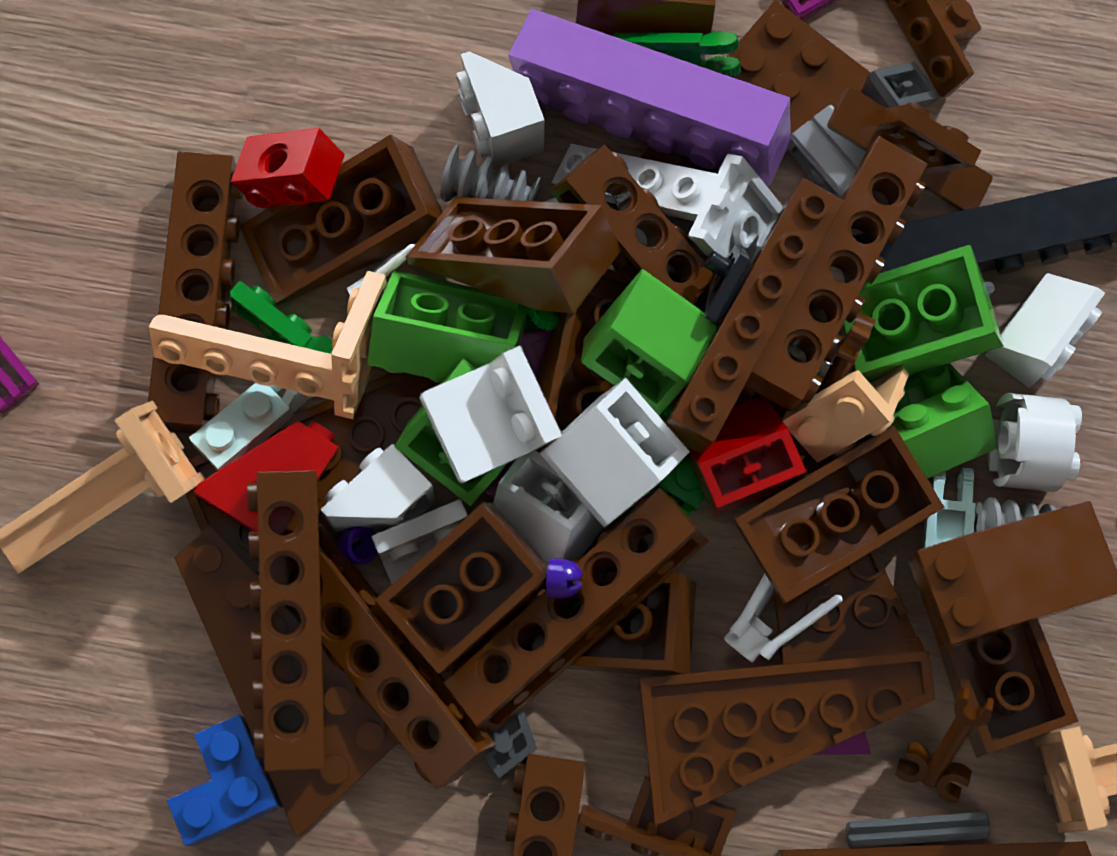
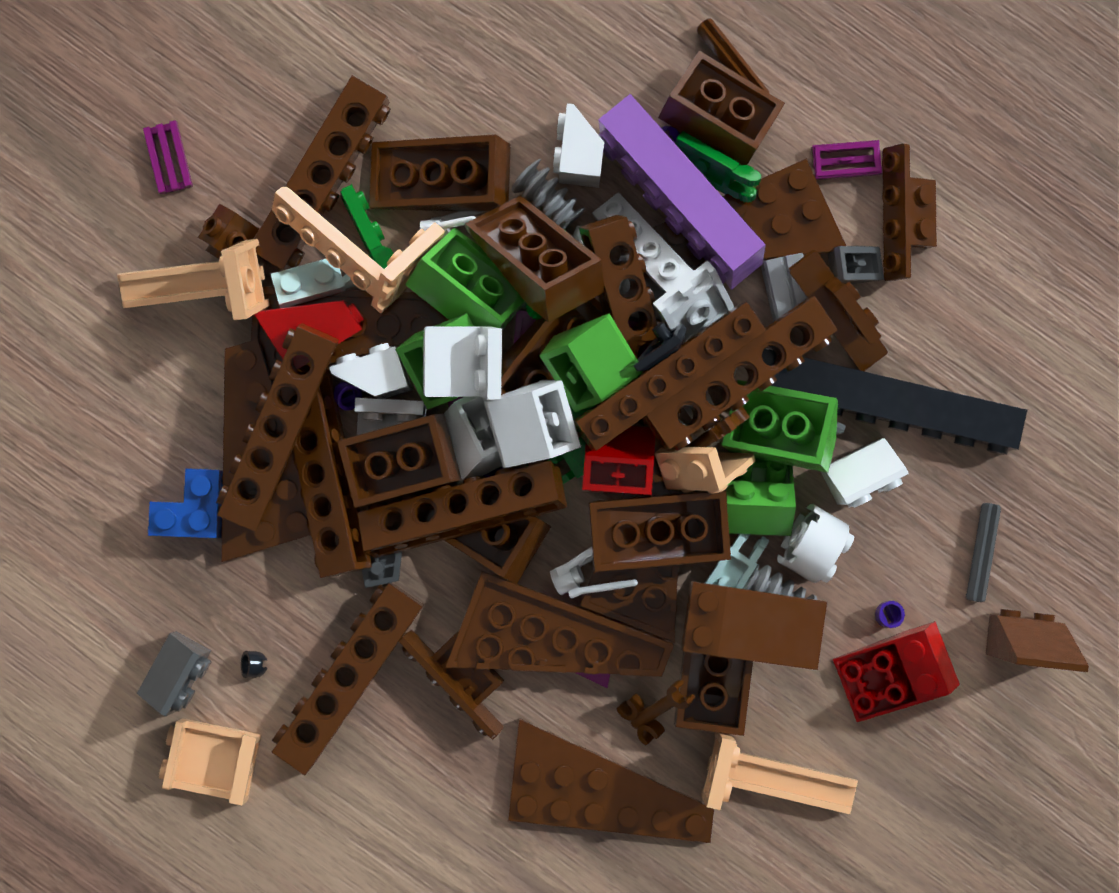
camera: 30 degrees right, 10 degrees up
(98, 409) = (225, 230): none -> reddish brown brick
(287, 168) = (418, 122): red brick -> none
(562, 578) = (460, 487): dark purple hinge -> none
(917, 829) = (612, 749): dark grey axle -> none

